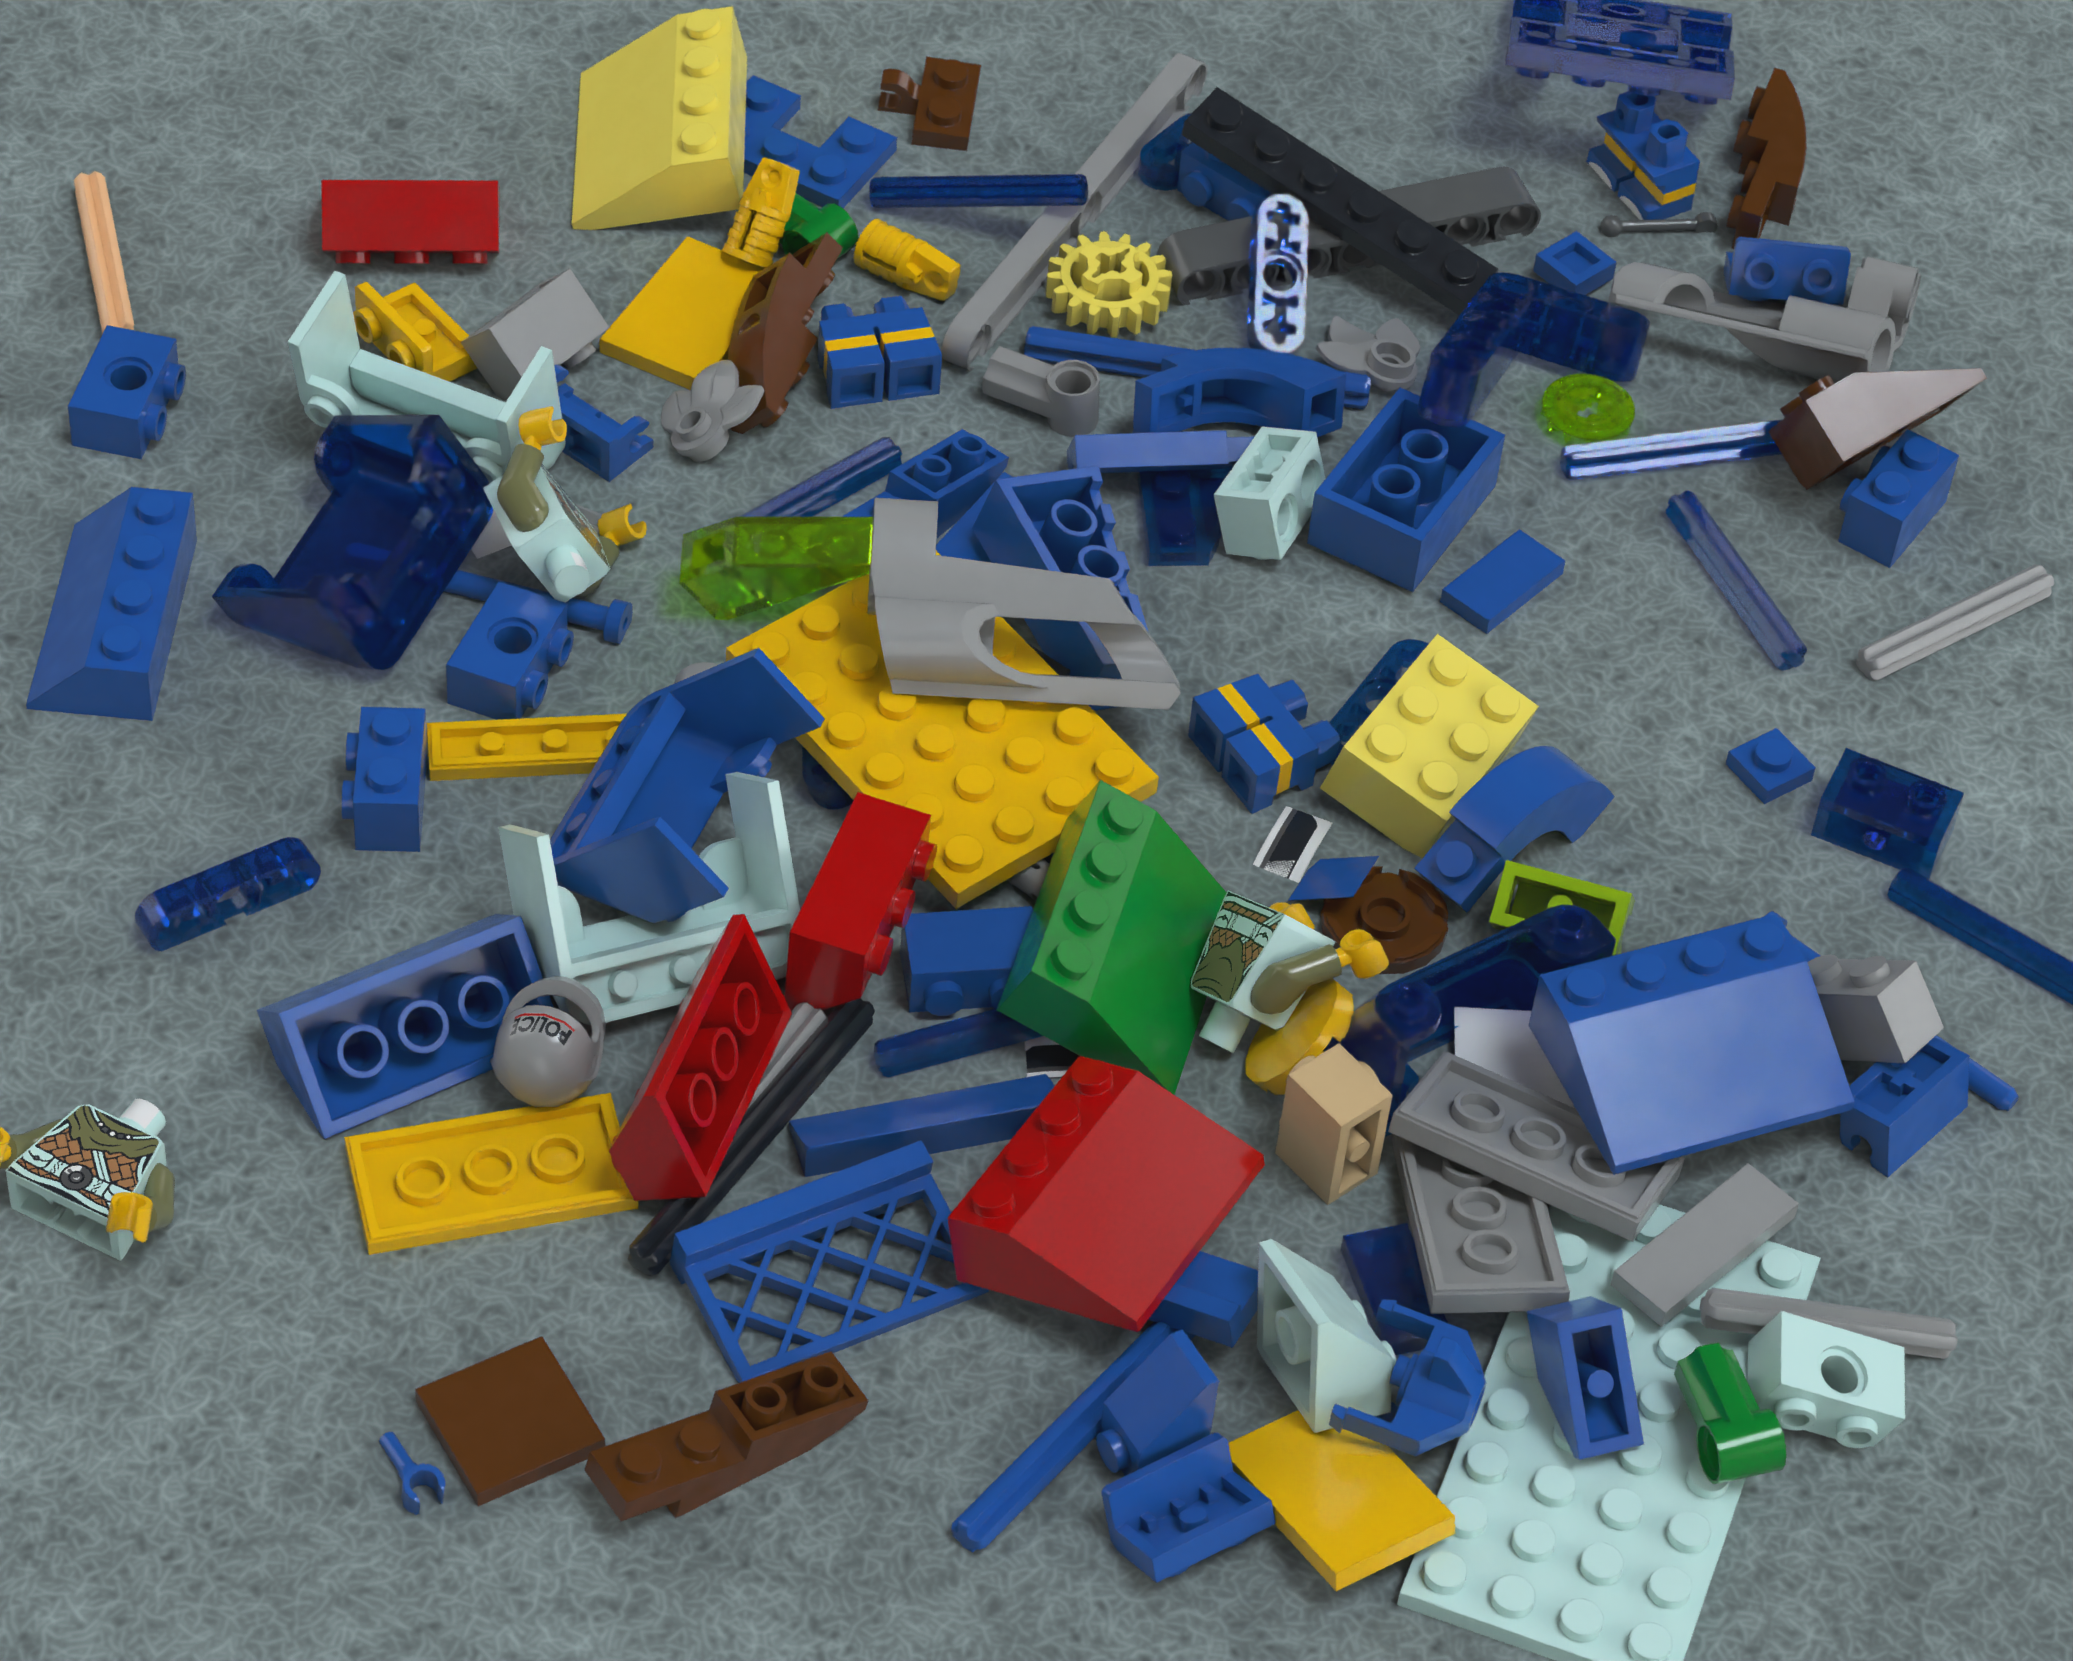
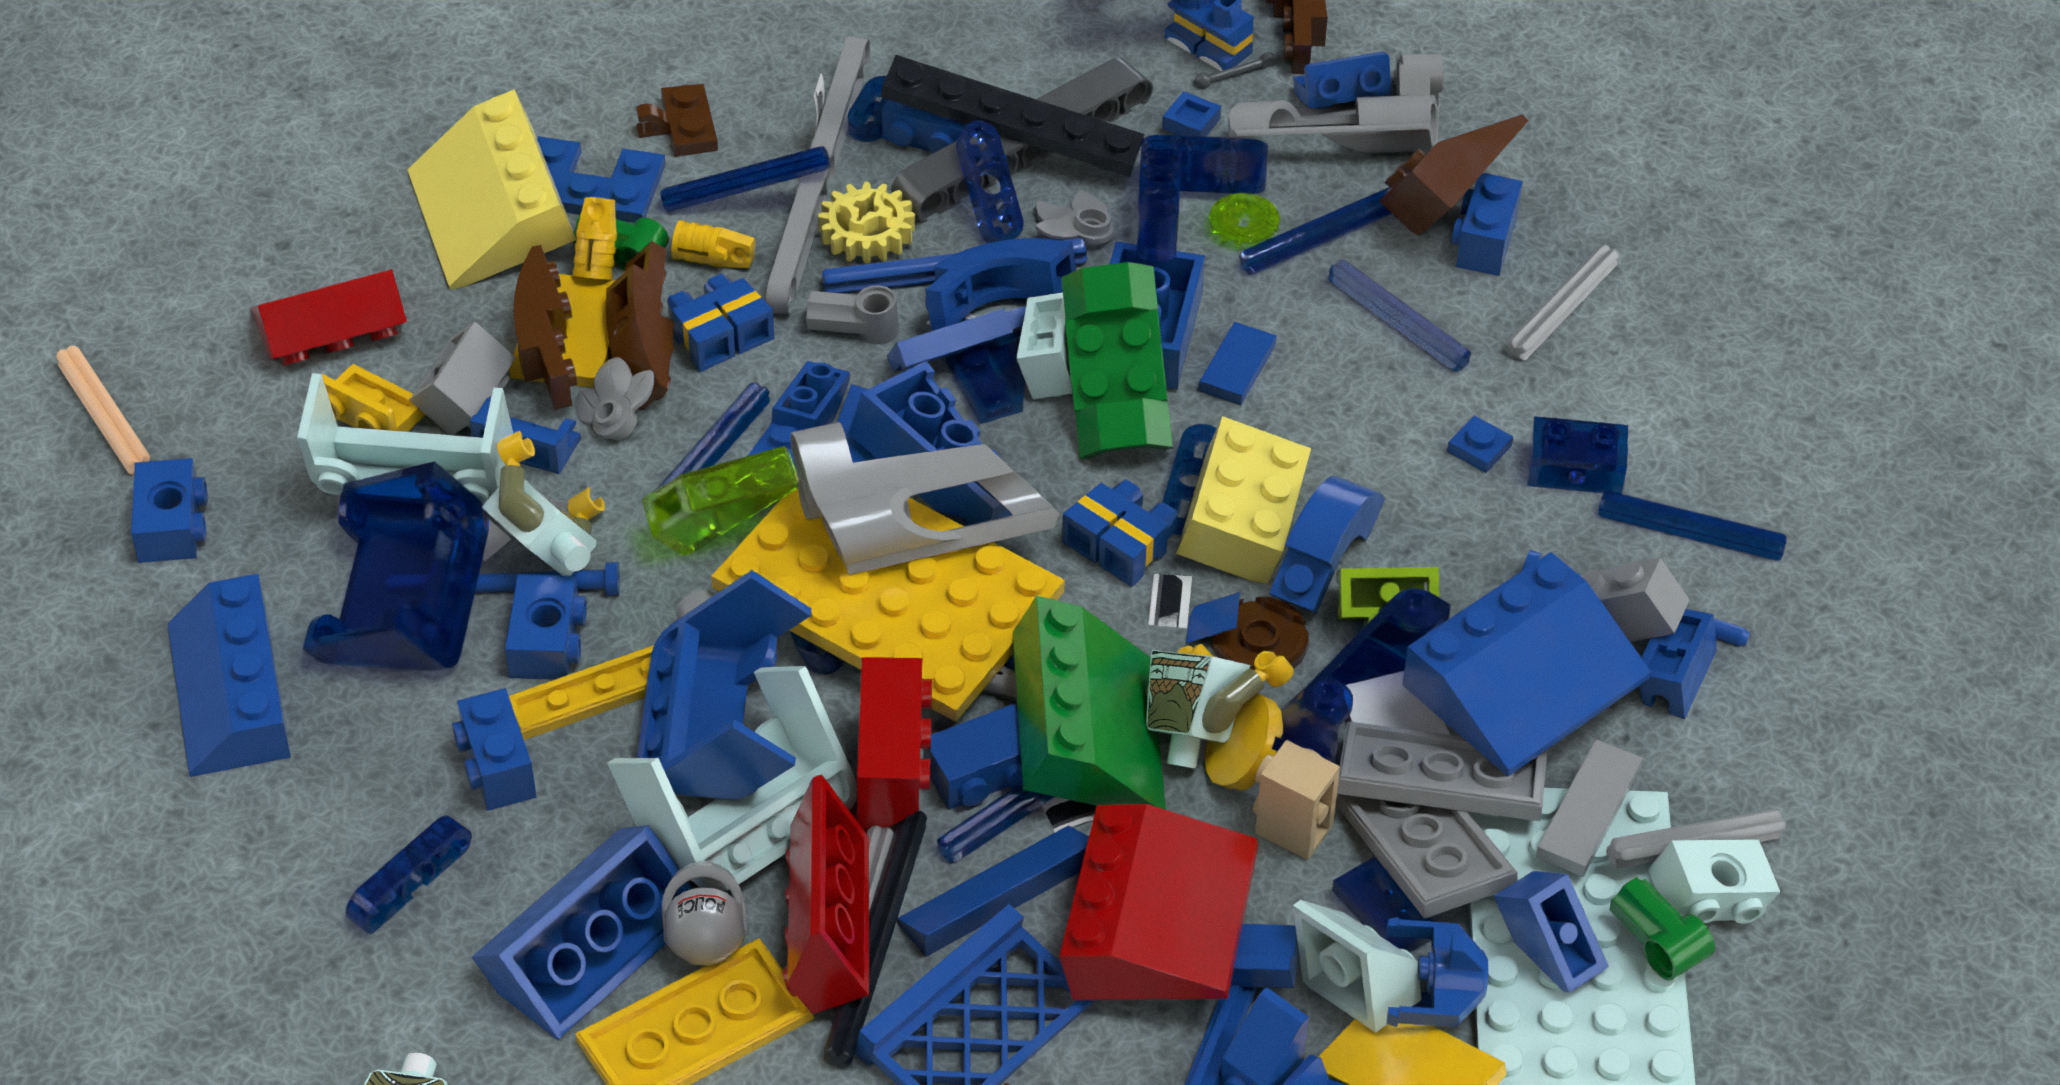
camera: 15 degrees left, 0 degrees up
(653, 297) = (542, 327): none -> reddish brown slope
(1104, 117) = (819, 101): none -> white sticker
(1338, 529) = (1116, 359): none -> green piece

